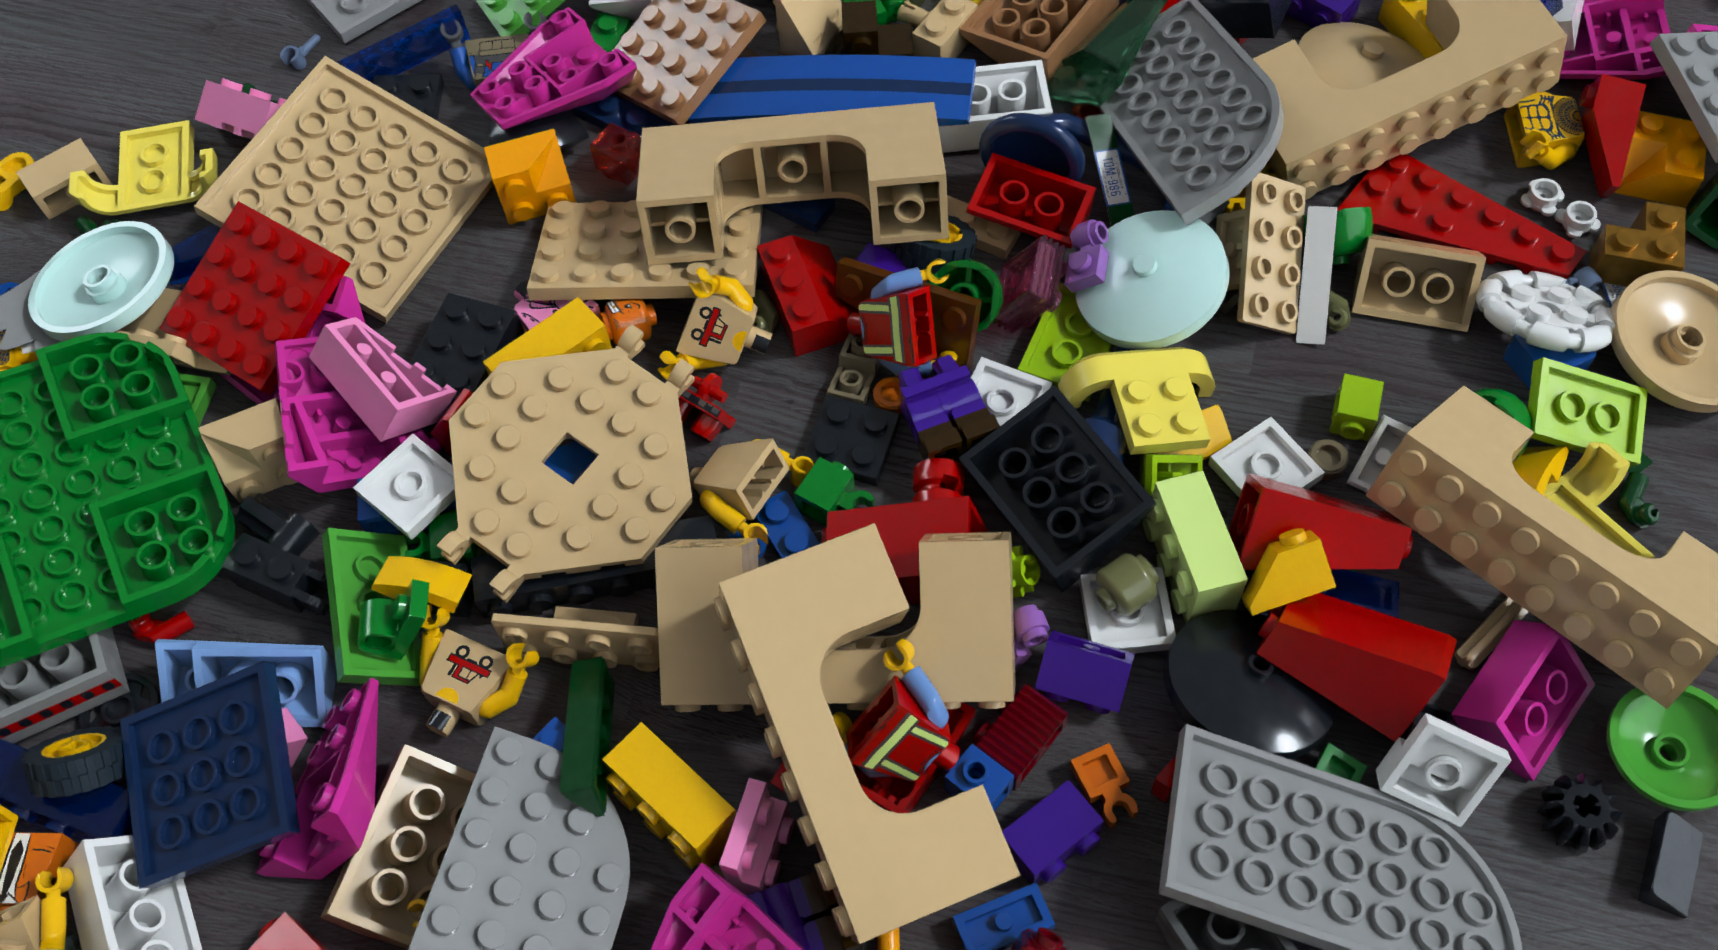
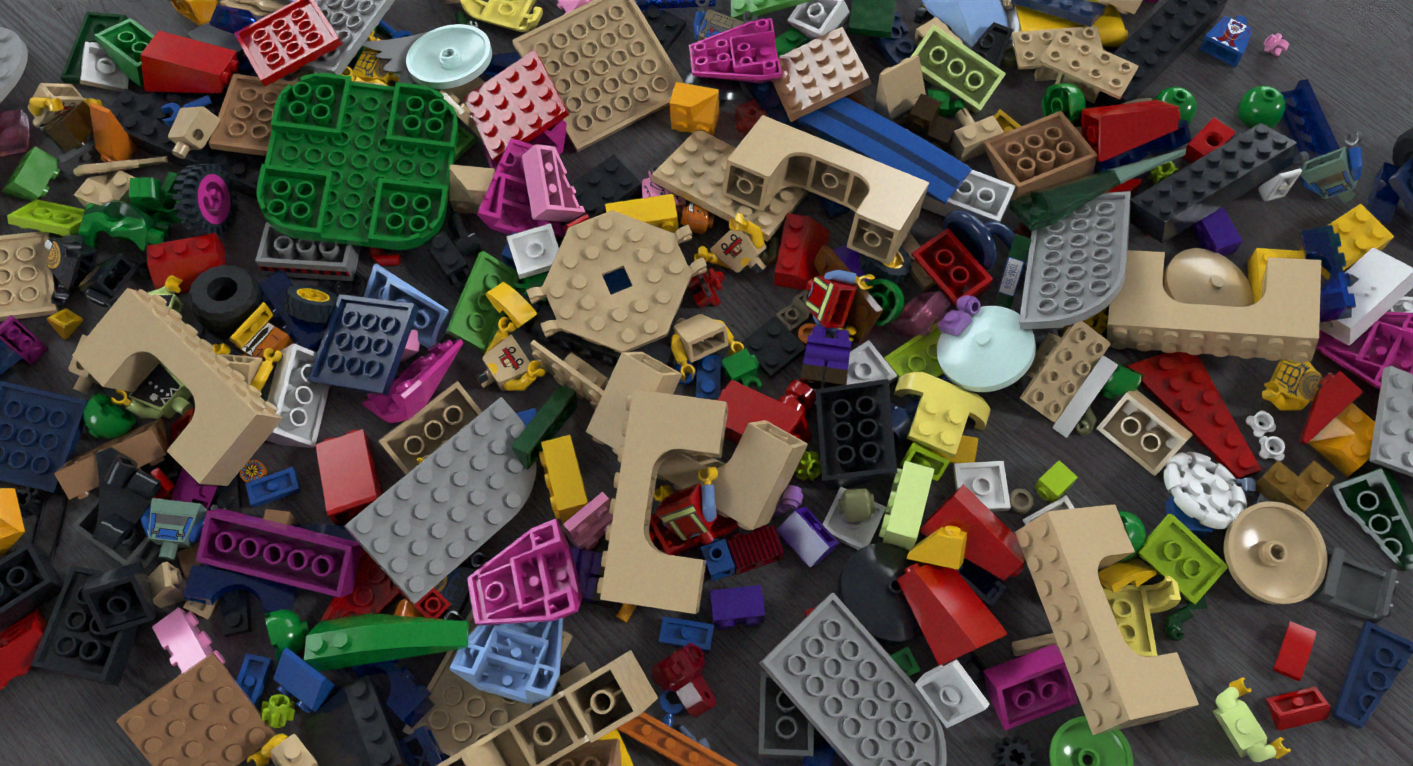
camera: 30 degrees right, 5 degrees up
(391, 625) = (484, 317): green plate -> none
(1104, 778) = (781, 595): orange plate -> none

